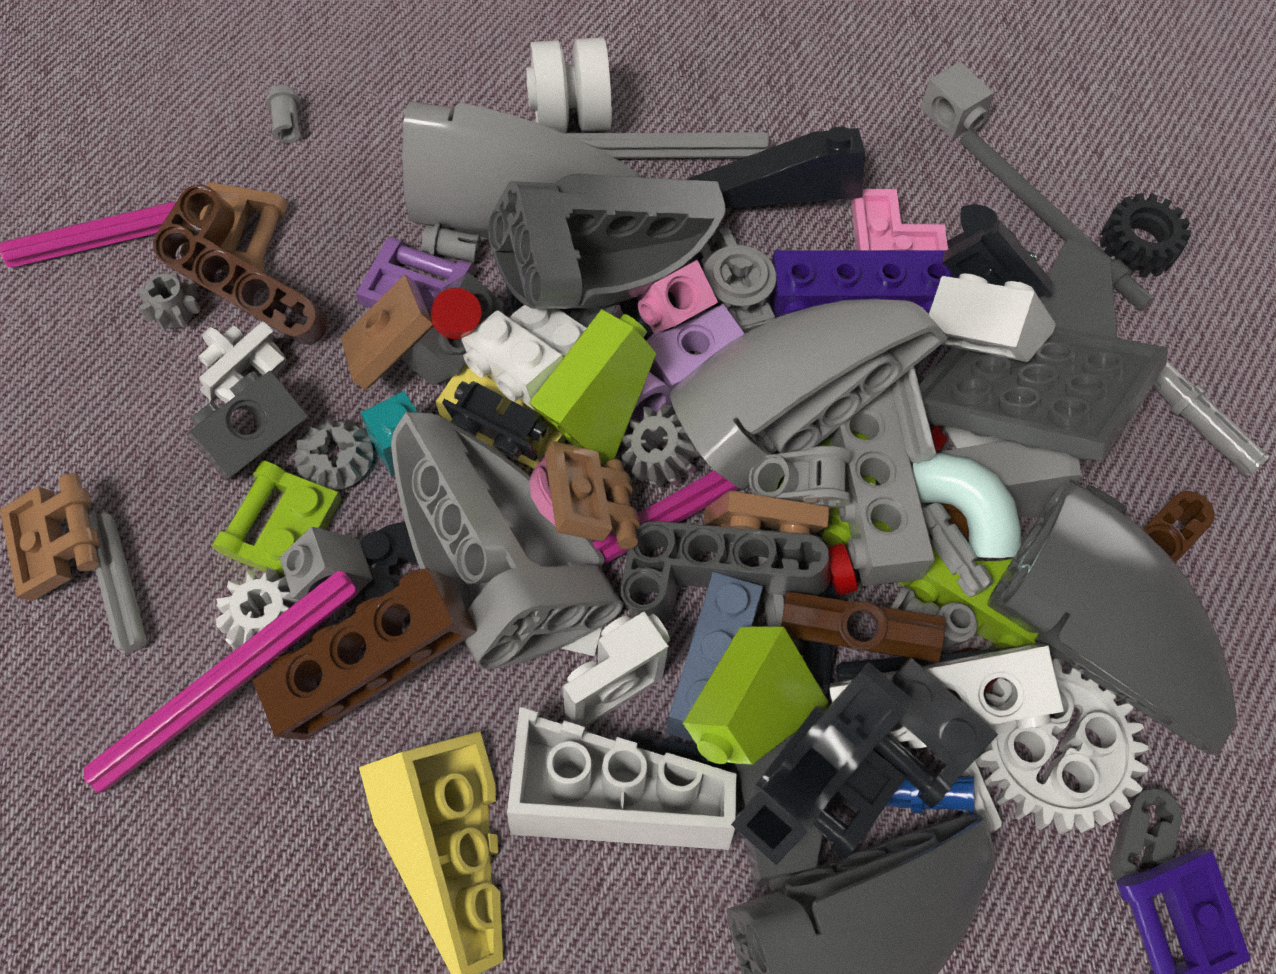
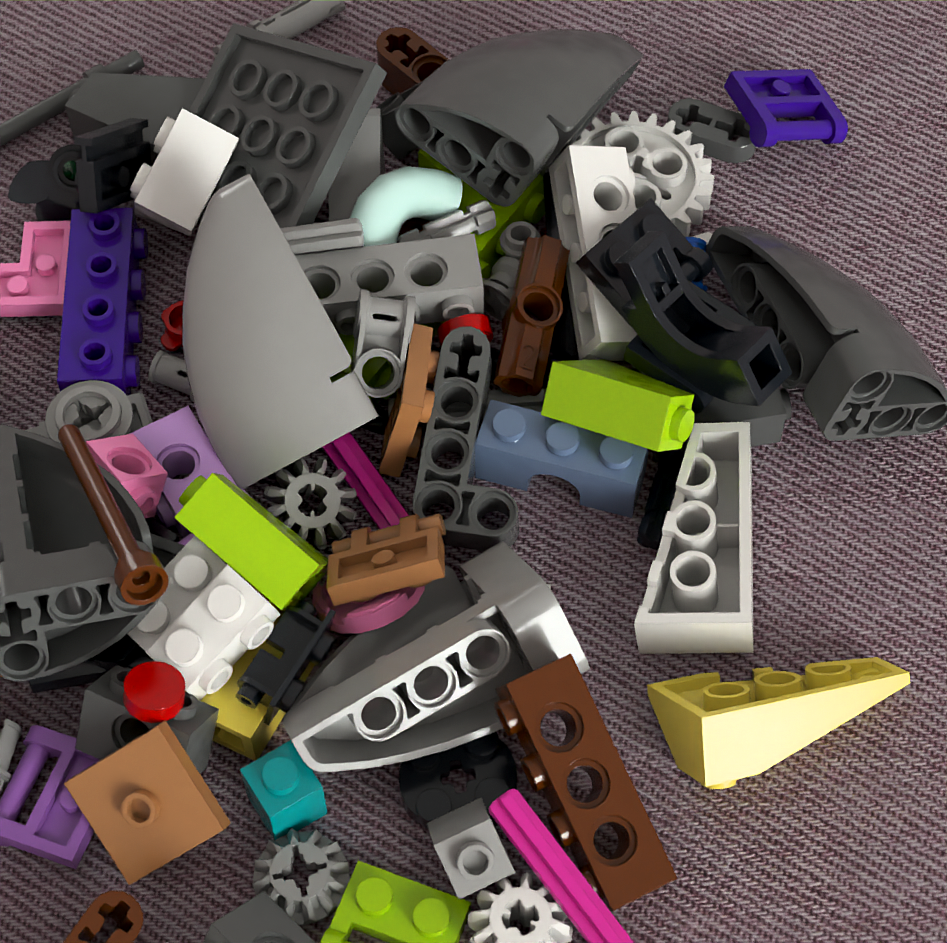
camera: 85 degrees left, 5 degrees down
(530, 273) = (137, 572): none -> reddish brown piece
(629, 662) = (586, 536): white plate -> none
(1154, 219) = (48, 28): black tyre -> none

